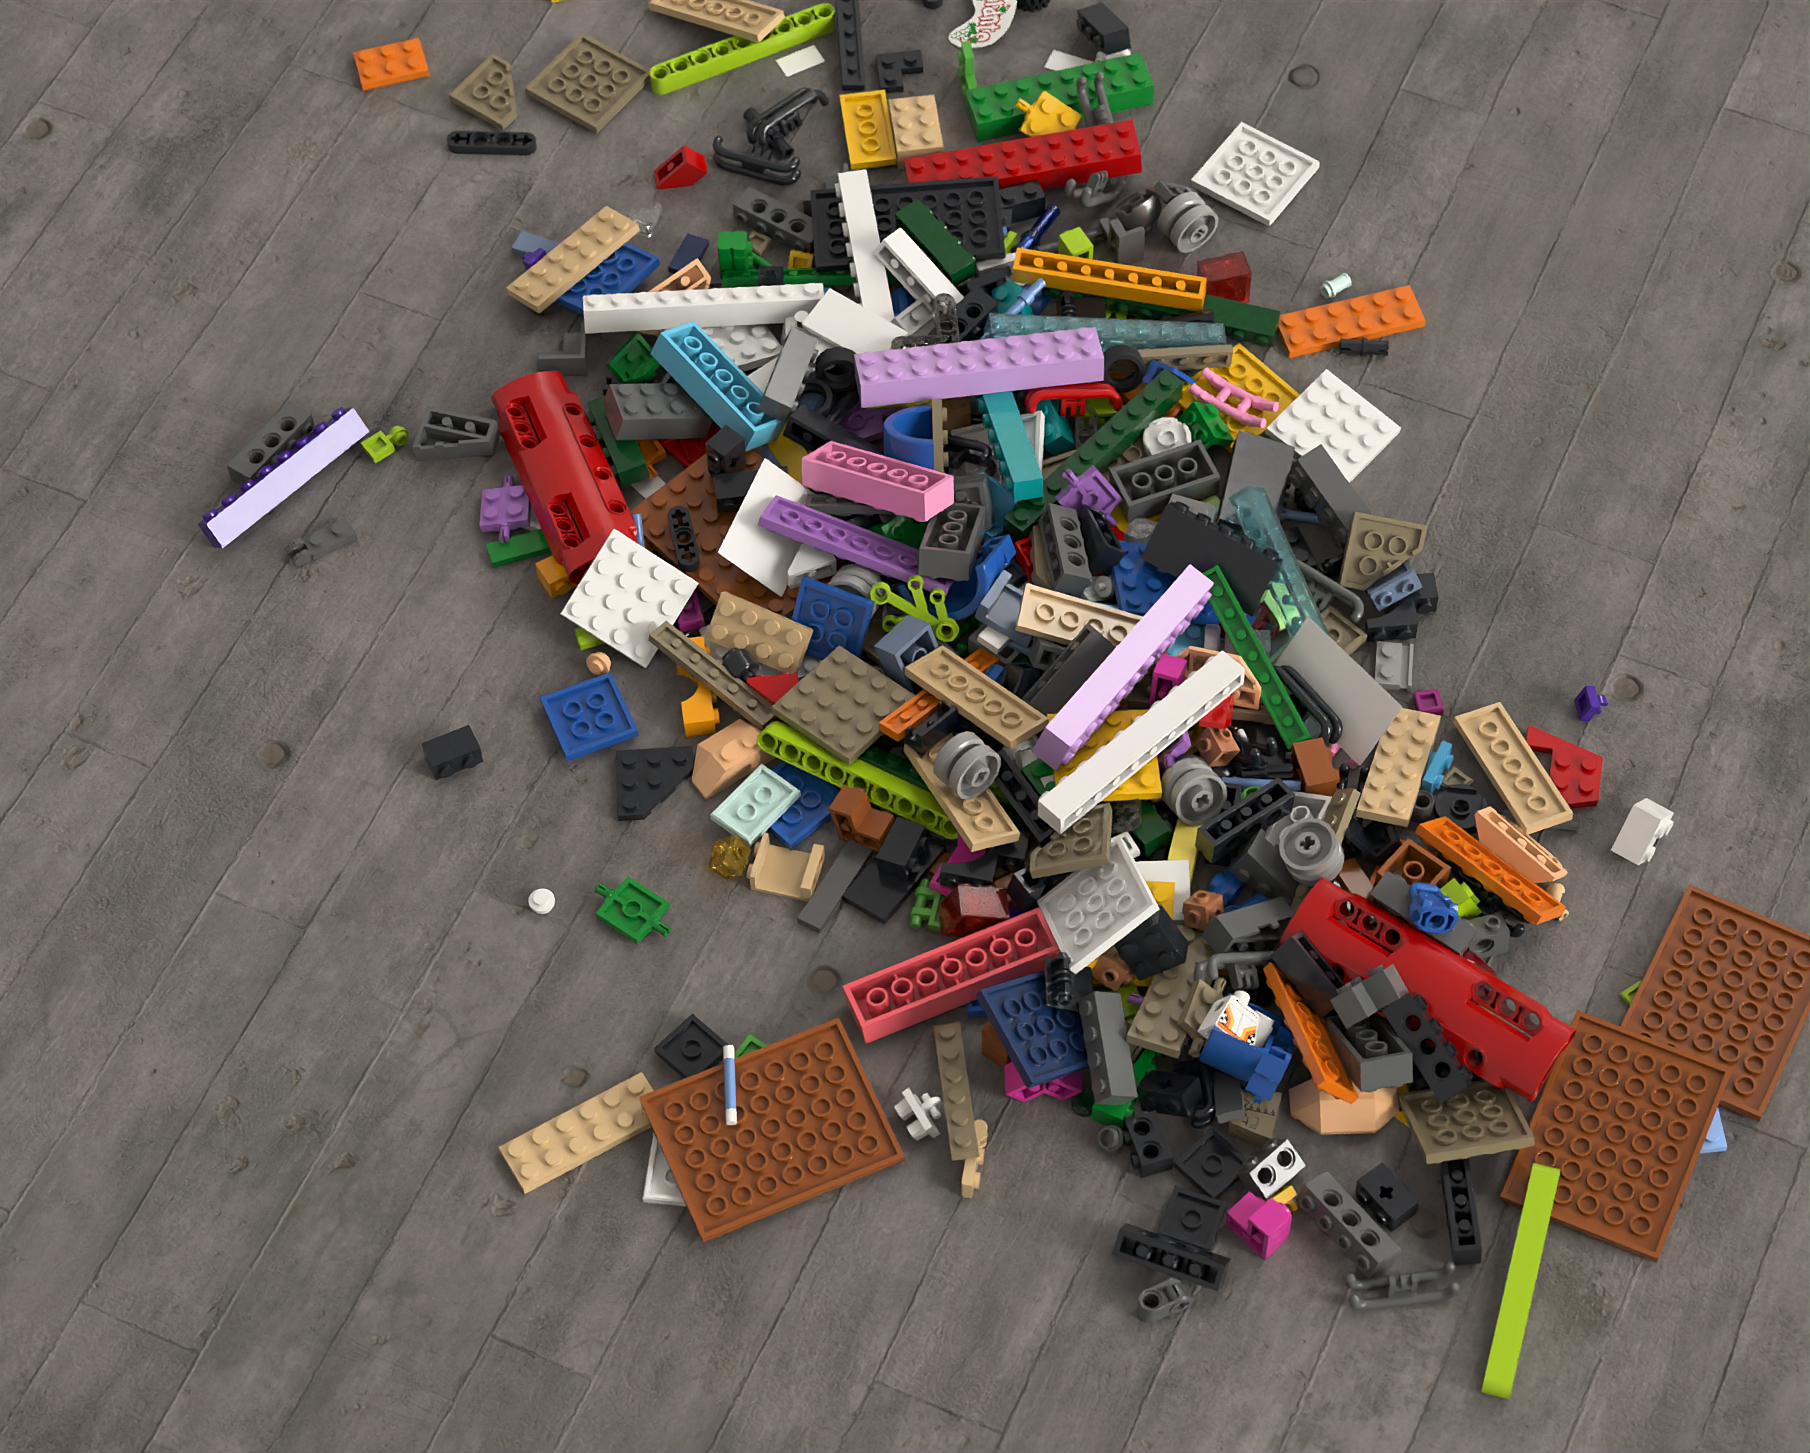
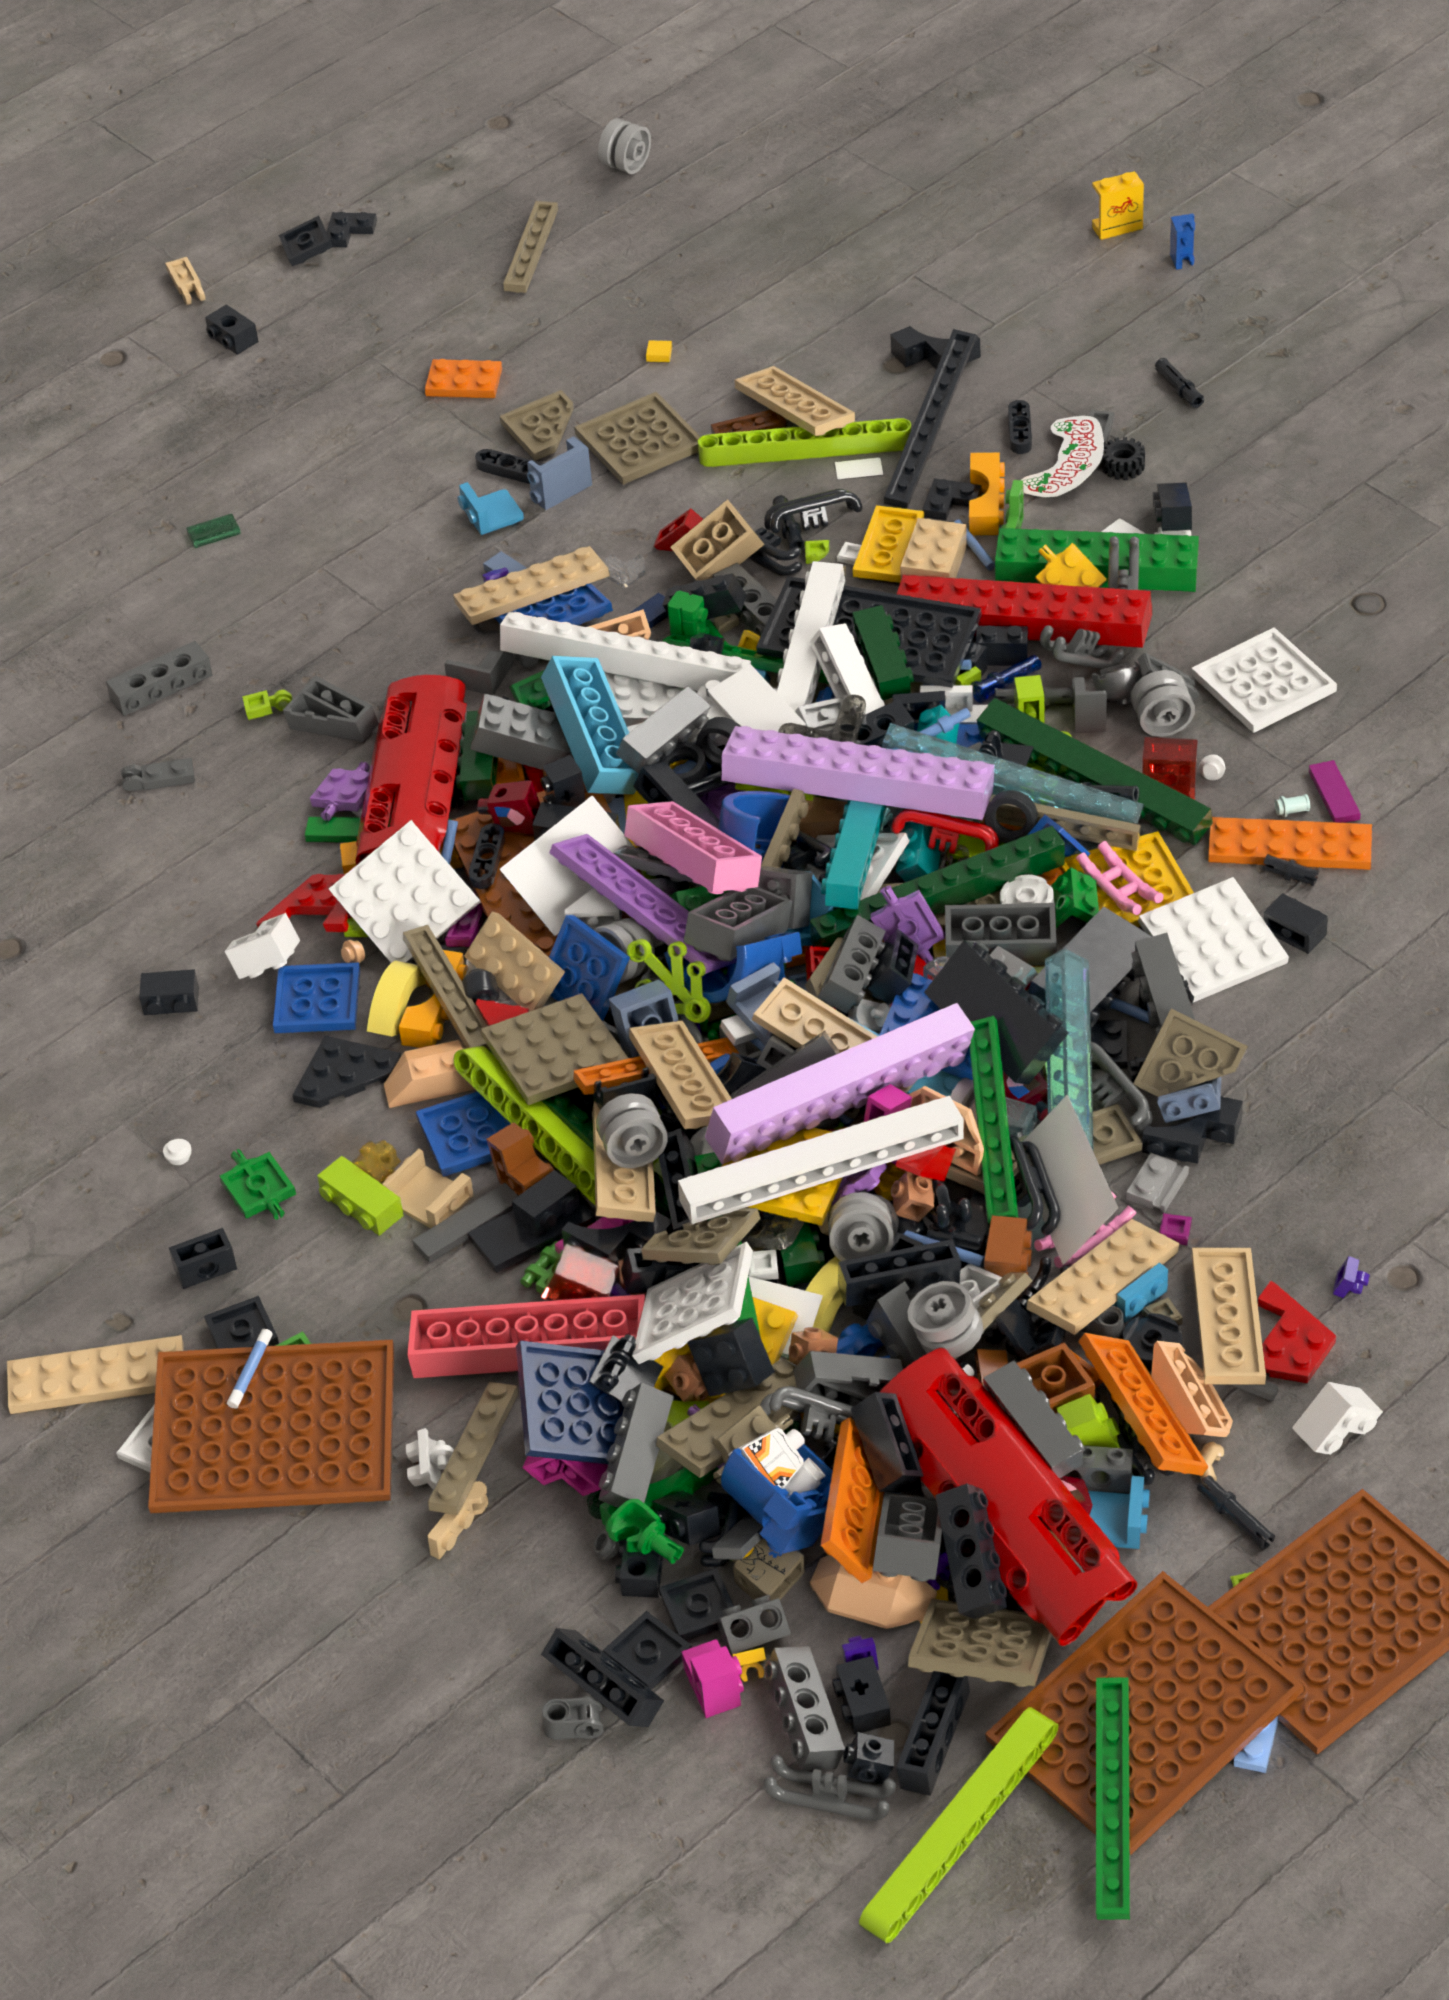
camera: 25 degrees right, 10 degrees down
(67, 28) = (185, 279): none -> tan hinge
(143, 70) = (231, 329): none -> black brick
(236, 282) = (213, 530): none -> clear green tile
(283, 477) = (152, 706): brick -> none
(489, 192) = (489, 511): none -> dark azure bracket
(521, 686) = (264, 948): none -> white brick
(536, 619) = (314, 899): none -> red wing
(544, 143) = (560, 476): none -> sand blue panel
(626, 995) = (202, 1258): none -> black brick
(664, 697) = (392, 997): none -> light yellow arch
(687, 41) = (757, 421): none -> reddish brown plate
(688, 486) = (512, 806): none -> dark red torso
(725, 174) = (717, 543): none -> tan brick
(730, 891) = (360, 1196): none -> lime brick
(755, 805) = (427, 1122): light aqua tile -> none
(756, 221) = (720, 594): none -> black brick
(805, 152) = (816, 550): none -> lime tile
(837, 147) = (848, 553): none -> white tile
(938, 76) = (984, 511): none -> light orange arch
(946, 113) = (978, 550): none -> medium blue bar
(1110, 279) = (1043, 730): light orange brick -> none
(1148, 1116) = (642, 1530): none -> green piece
(1257, 268) = (1212, 767): none -> white plate
(1363, 263) = (1334, 792): none -> magenta tile
(1364, 997) = (923, 1477): dark grey brick -> none
(1365, 1160) = (859, 1649): none -> dark purple tile
(1393, 395) = (1296, 923): none -> black brick
(1422, 1249) = (869, 1758): none -> black brick
(1431, 909) = (1036, 1410): blue piece -> none
(1517, 966) = (1121, 1514): none -> dark azure bracket
(1599, 937) = (1226, 1503): none -> black pin
(1631, 1216) = (1112, 1799): none -> green plate

